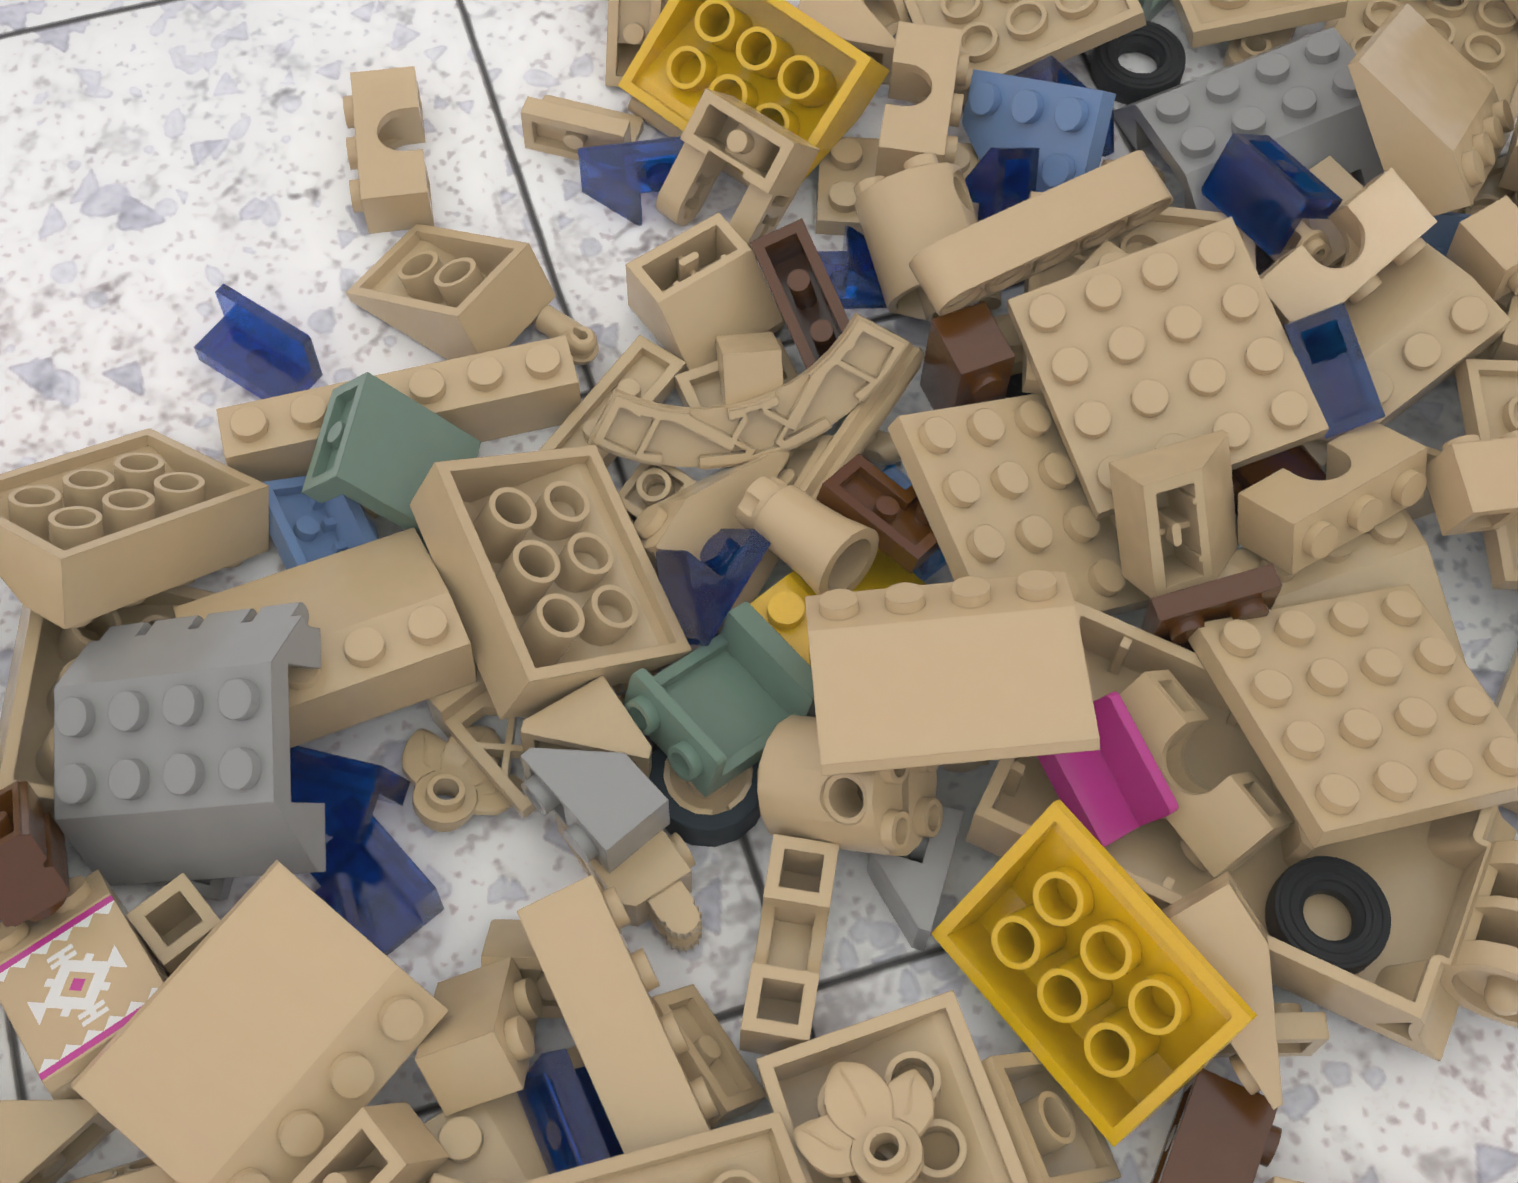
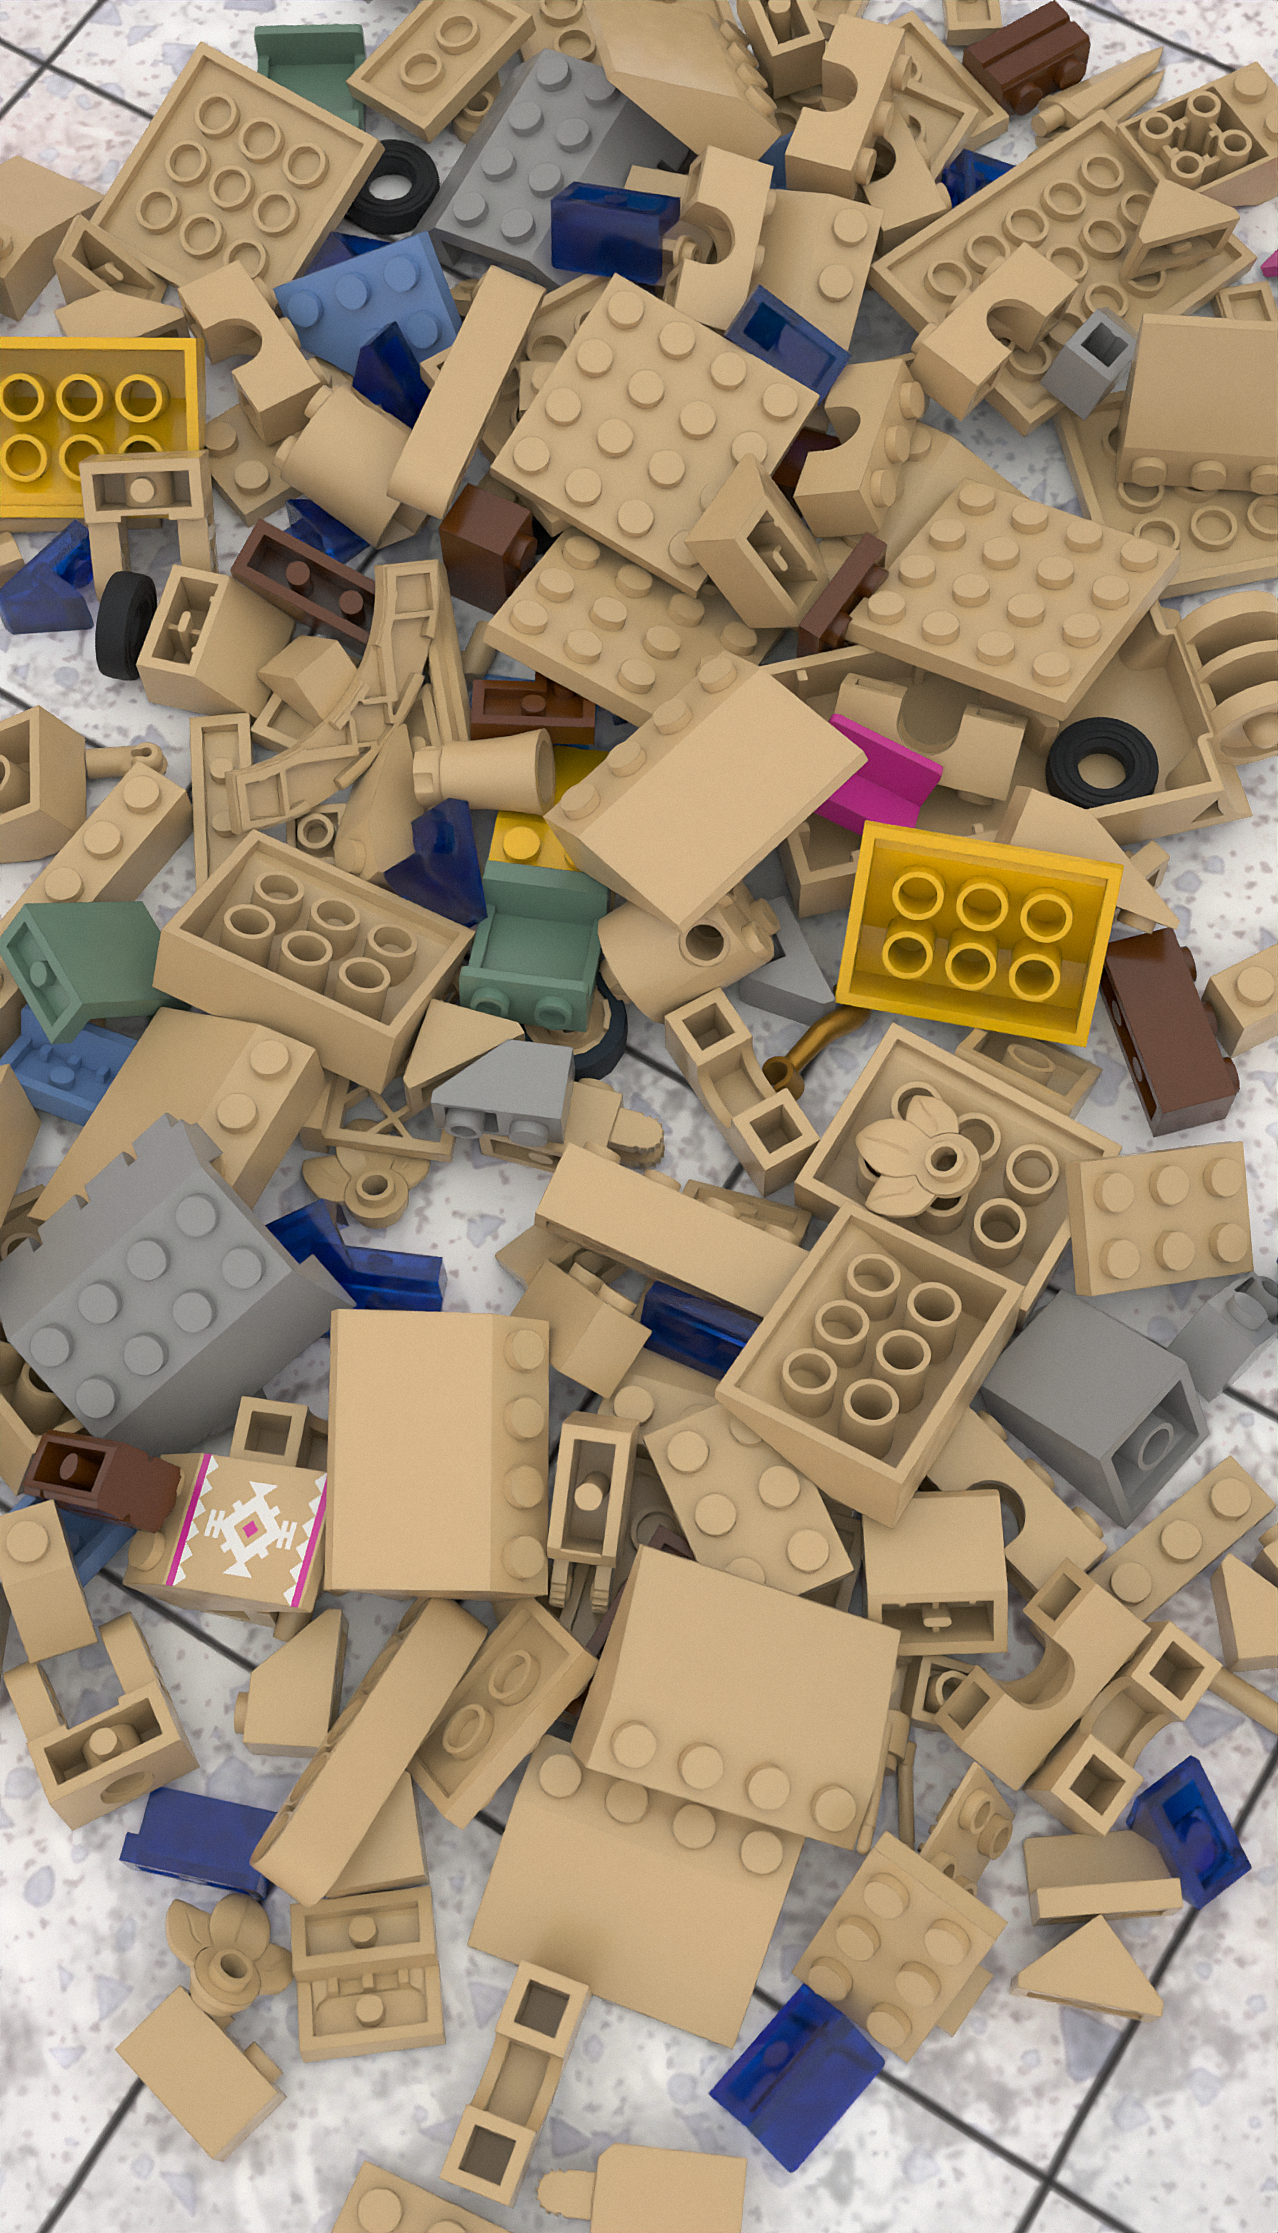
camera: 35 degrees left, 5 degrees up
(654, 211) = (123, 623): none -> black tyre
(895, 951) = (823, 1032): none -> pearl gold piece

